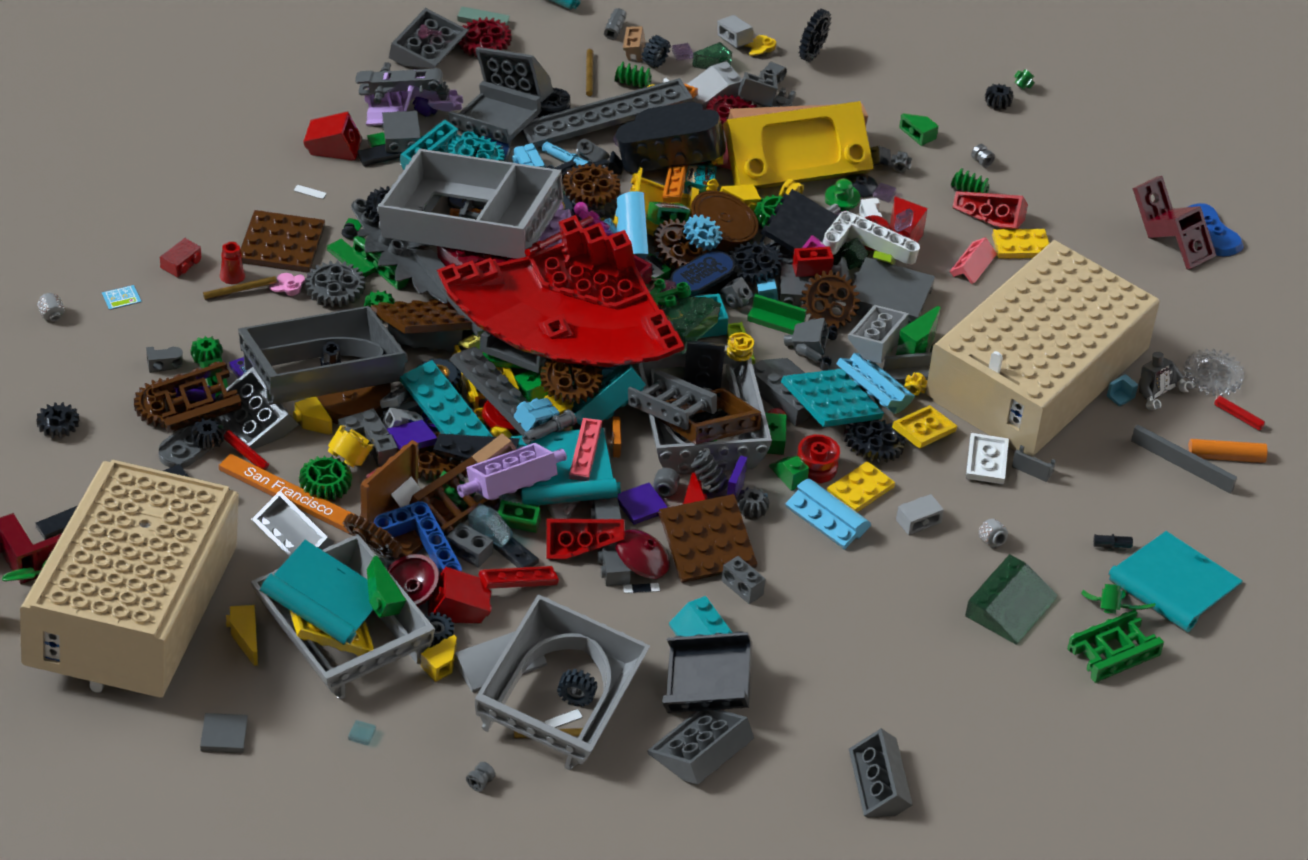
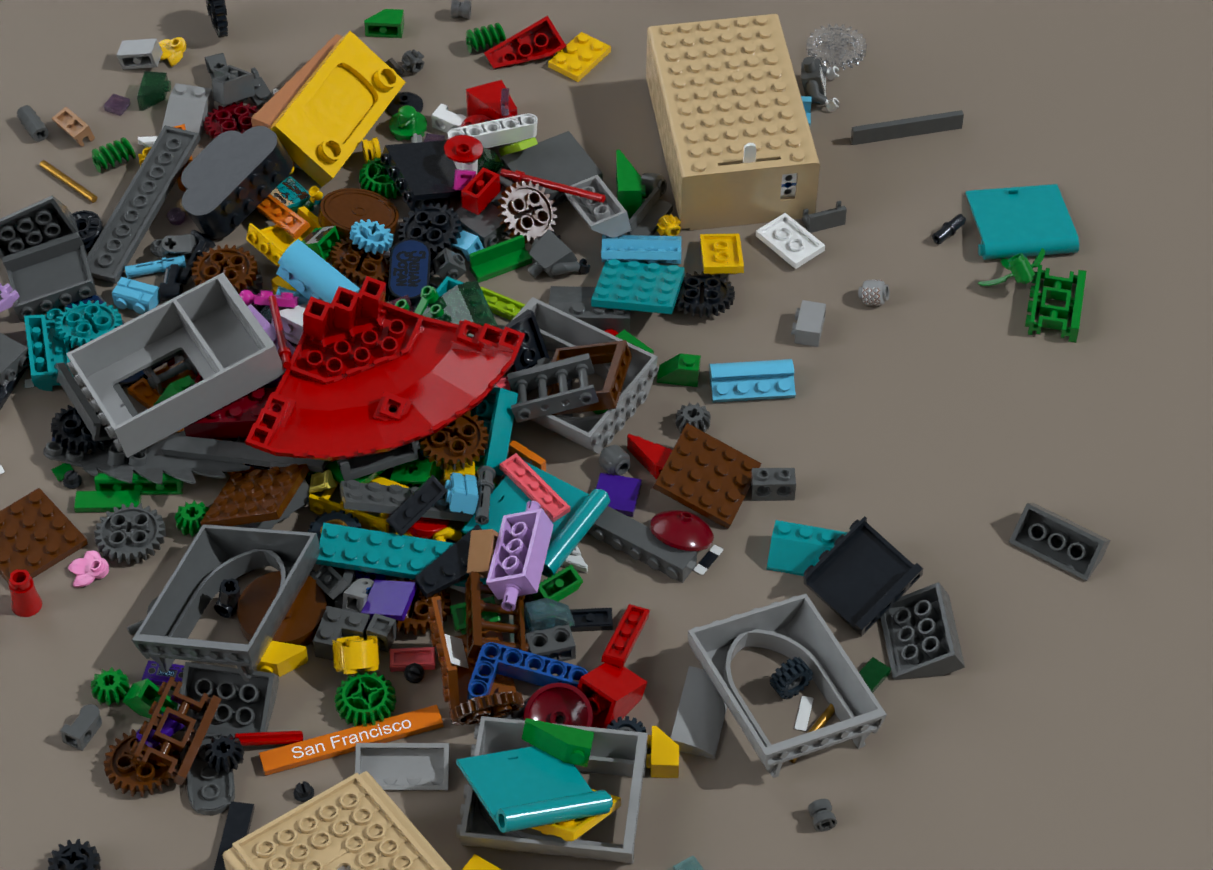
camera: 45 degrees left, 5 degrees up
(240, 287) = (56, 604): pearl gold piece -> none
(495, 395) = (416, 505): none -> black tile
(577, 536) = (621, 561): red wedge -> none
(630, 737) = (874, 673): none -> dark green tile
(656, 51) = (104, 119): black bush -> none
(711, 472) = (640, 423): dark grey piece -> none
(737, 478) = (667, 413): dark purple tile -> none
(740, 346) = (537, 300): yellow wheel -> none
(746, 193) = (341, 180): yellow slope -> none
(821, 456) = (689, 337): red wheel -> none
(832, 225) = (463, 148): none -> red dish
(856, 276) = (518, 176): none -> red bar
(861, 486) = (740, 338): yellow plate -> none
(884, 192) = (431, 96): clear purple tile -> none
(974, 260) = (567, 96): coral panel -> none
(1010, 600) = (951, 332): slope -> none
(1228, 450) = (922, 96): orange brick -> none
(1239, 413) = (889, 63): red axle -> none

